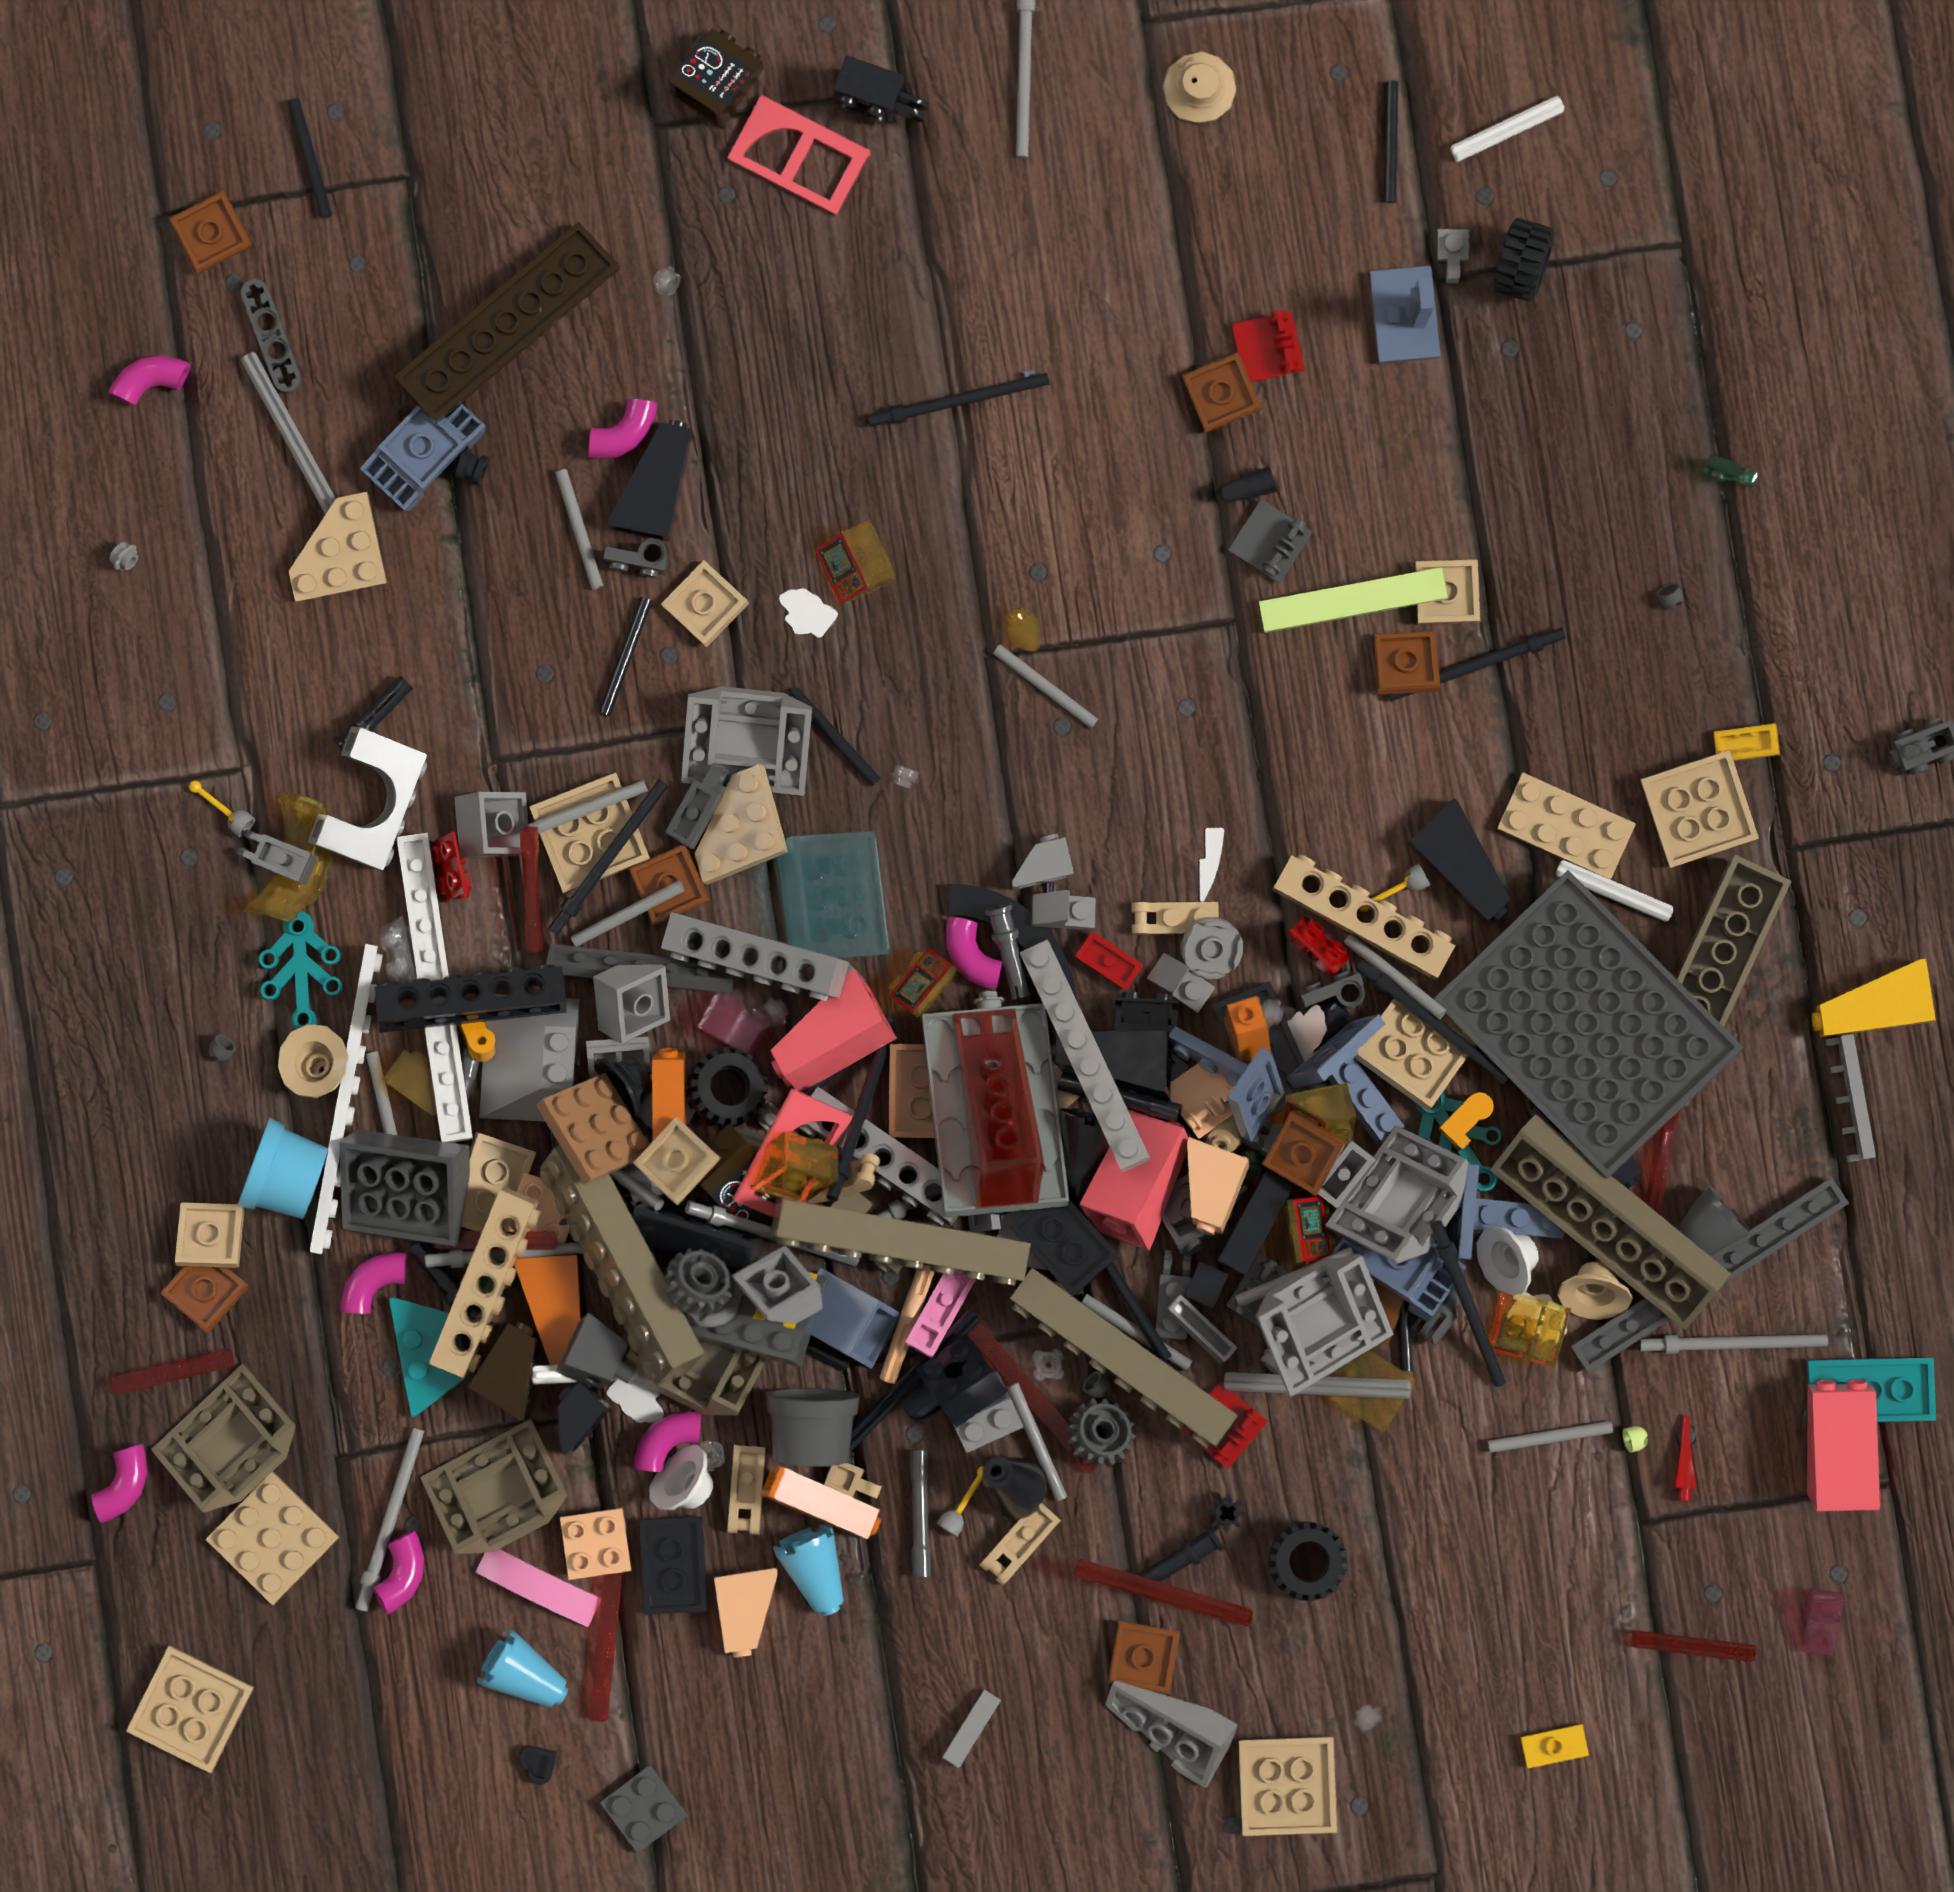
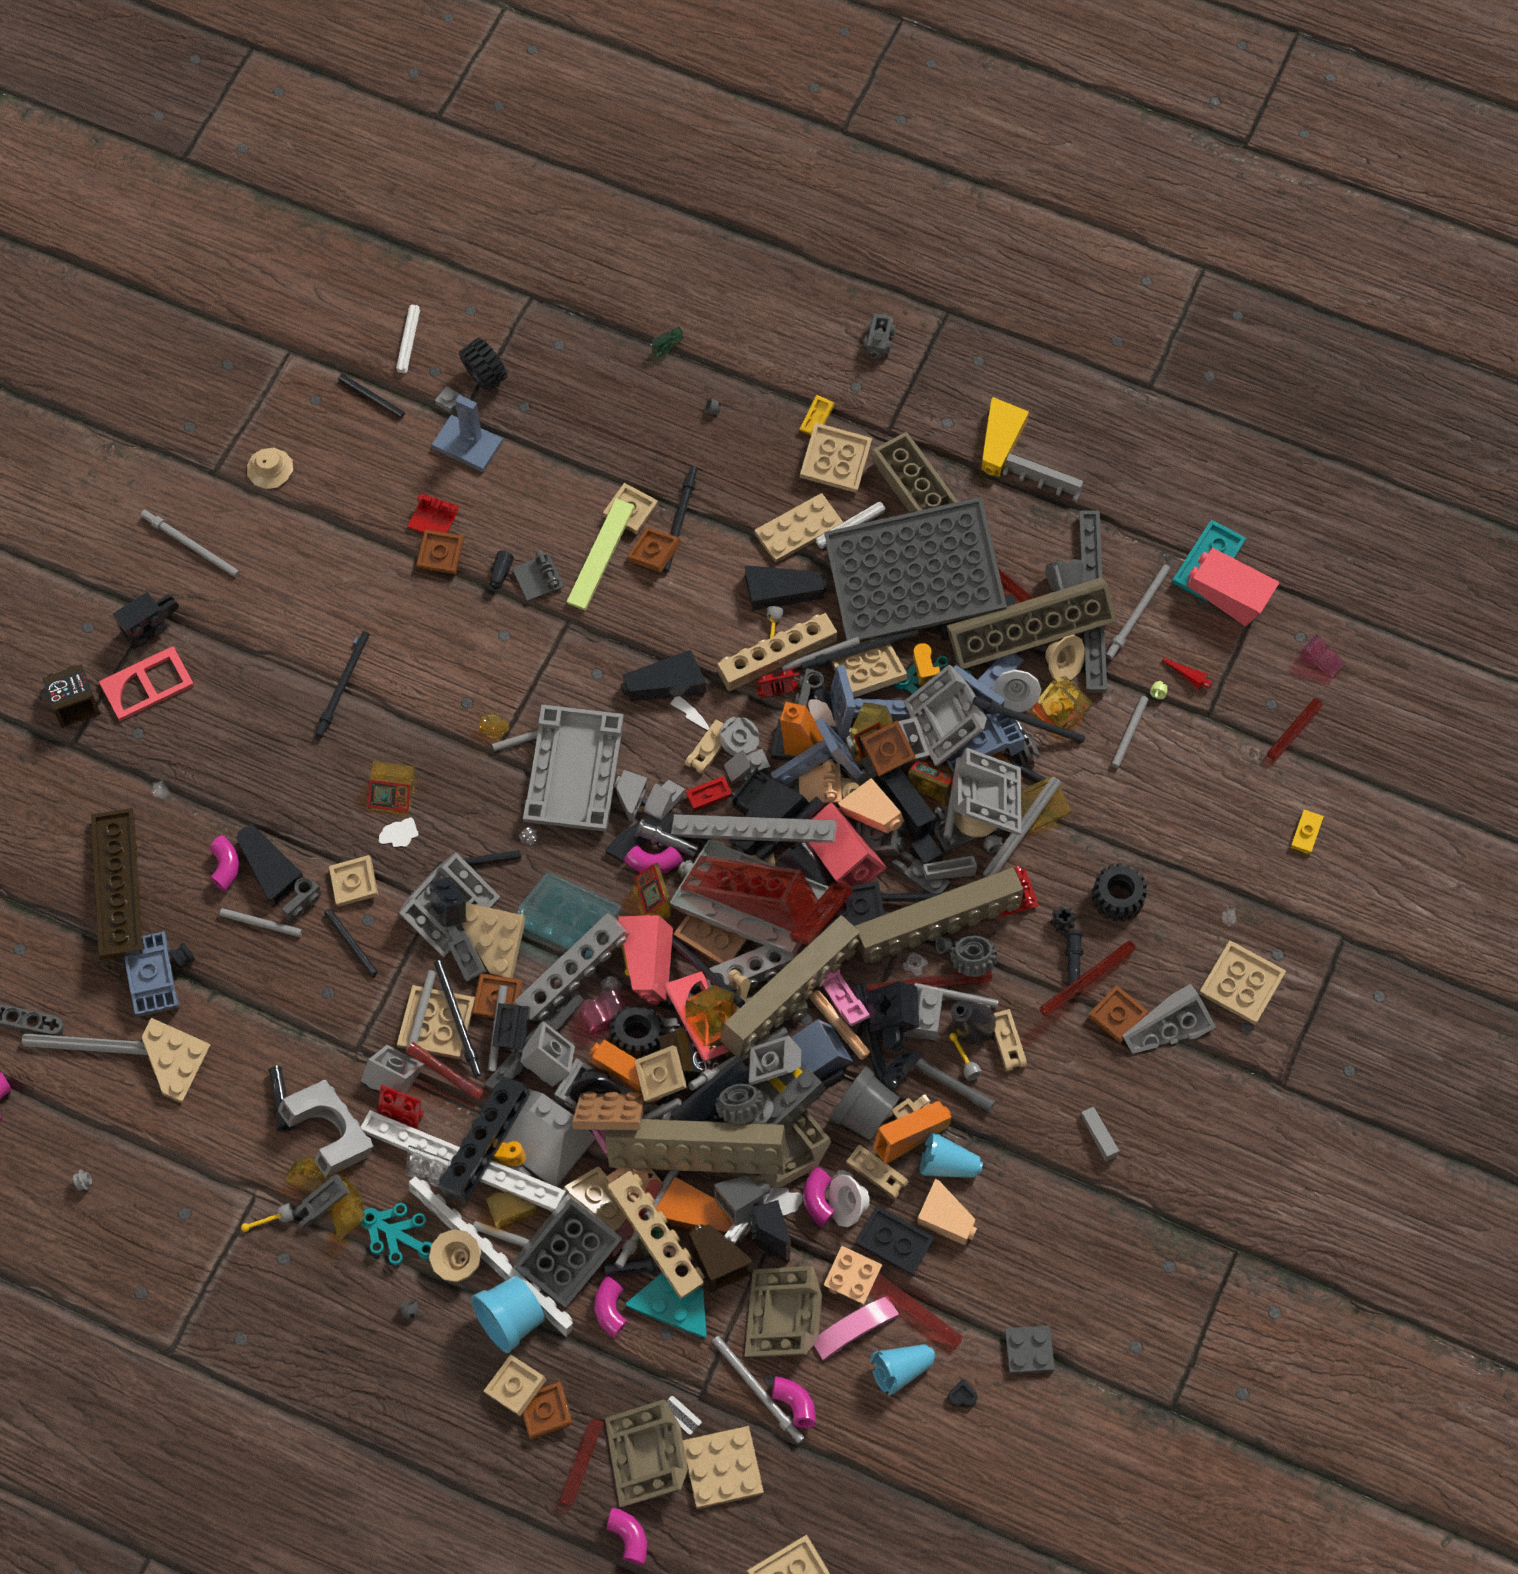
camera: 55 degrees left, 20 degrees down
(304, 1448) = (686, 1418): none -> sticker
(635, 931) = (511, 1026): none -> black plate
(743, 744) = (448, 902): none -> black brick
(889, 1437) = (900, 1067): none -> black hinge
(1020, 1215) = (821, 913): none -> clear red plate
(1028, 772) = (574, 768): none -> light grey slope
(1233, 803) = (665, 679): none -> black slope

